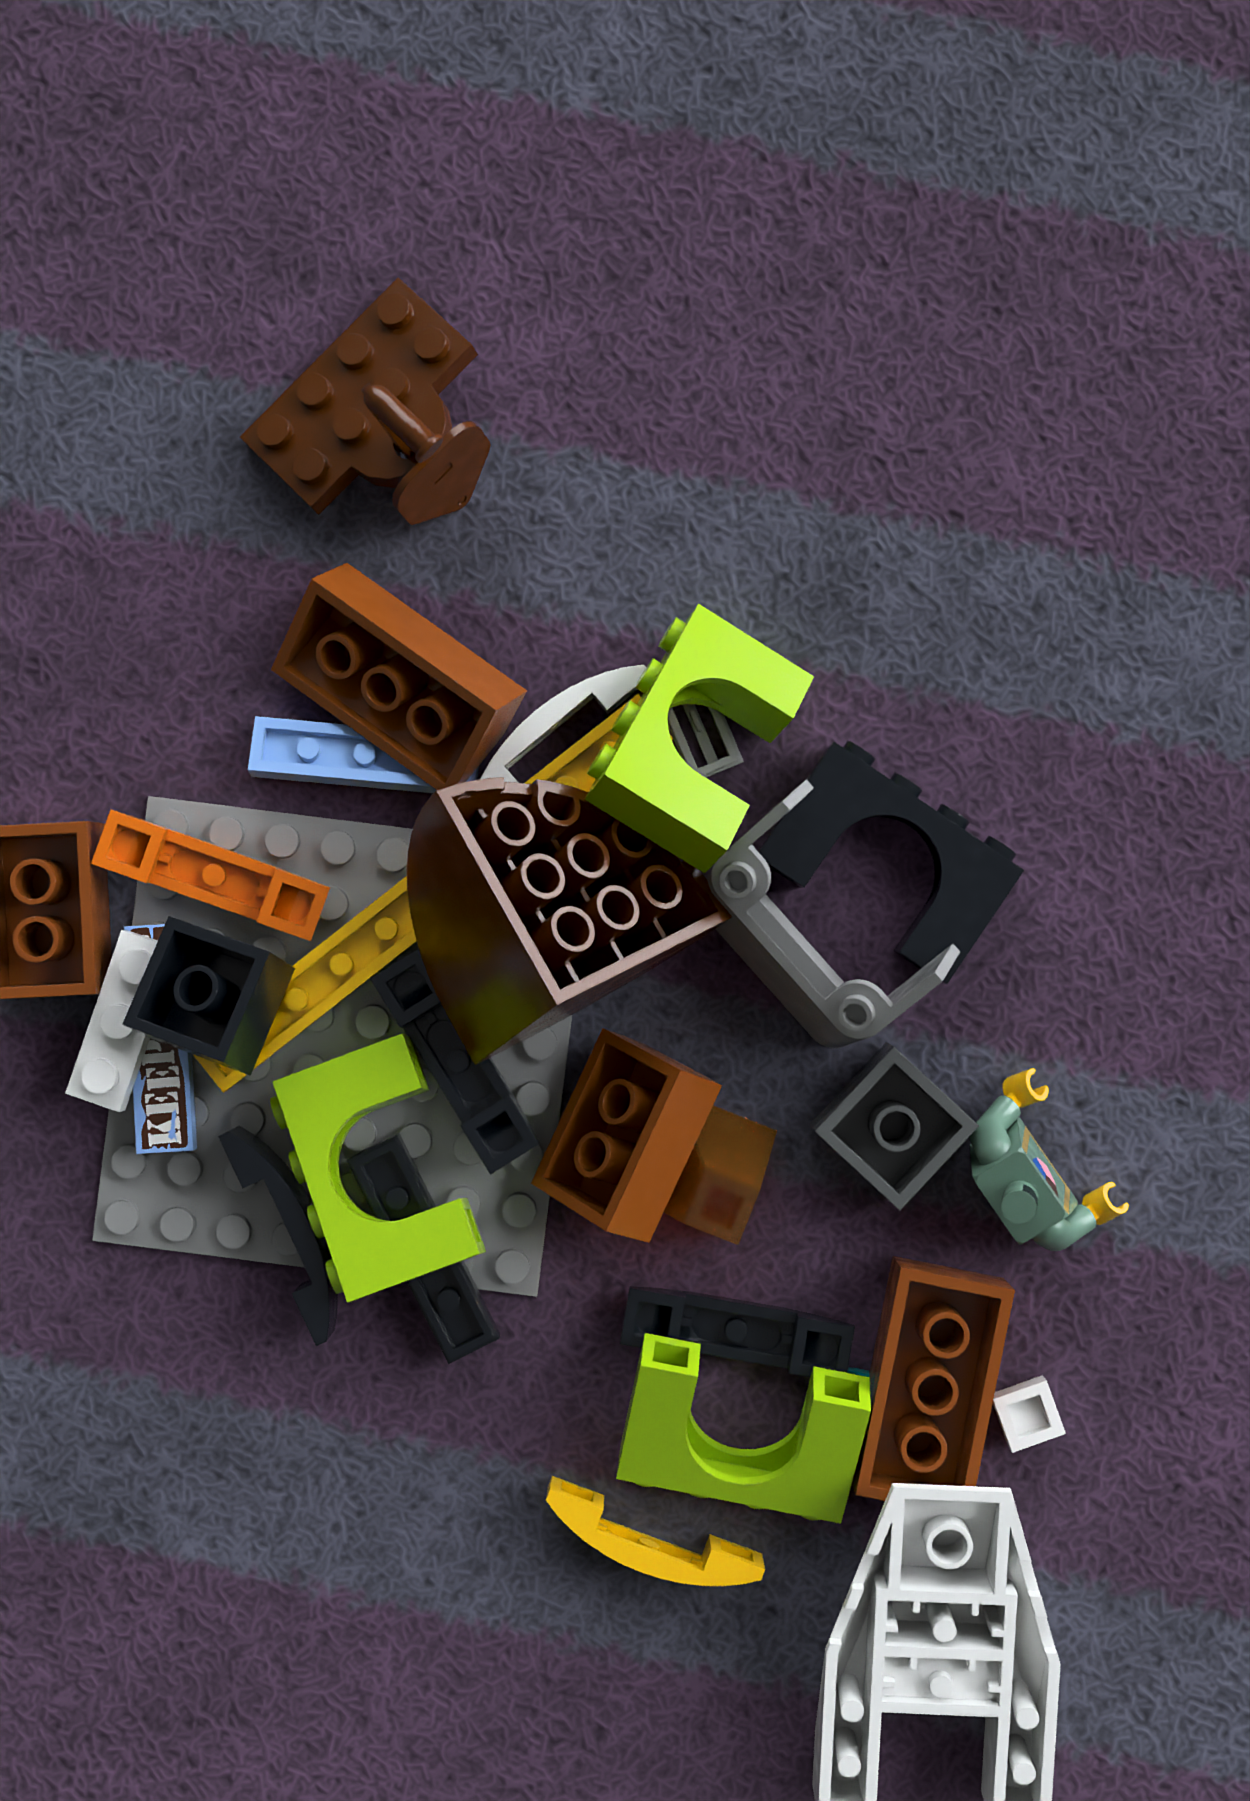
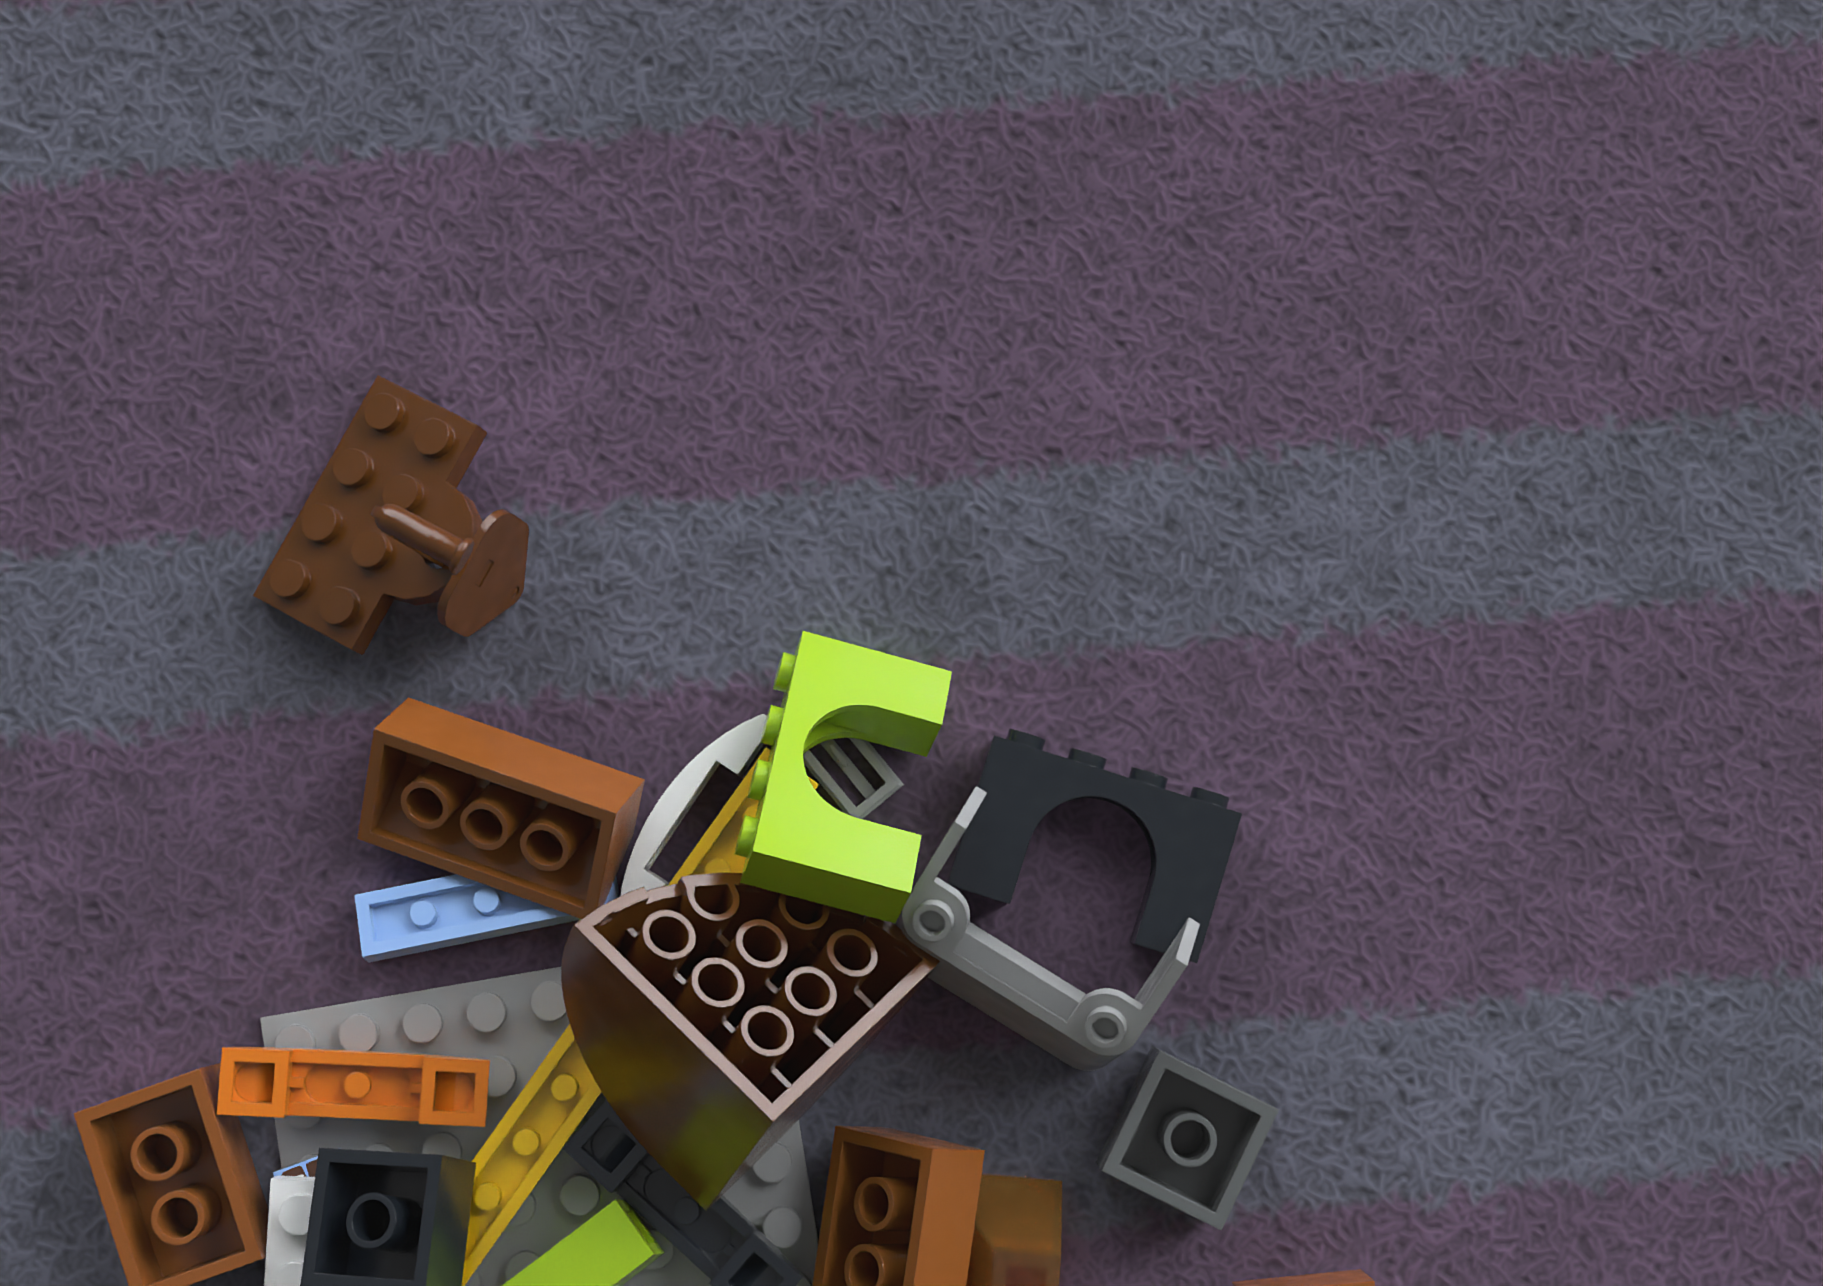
camera: 20 degrees left, 5 degrees down
(1023, 1181) = (1346, 1154): sand green torso -> none

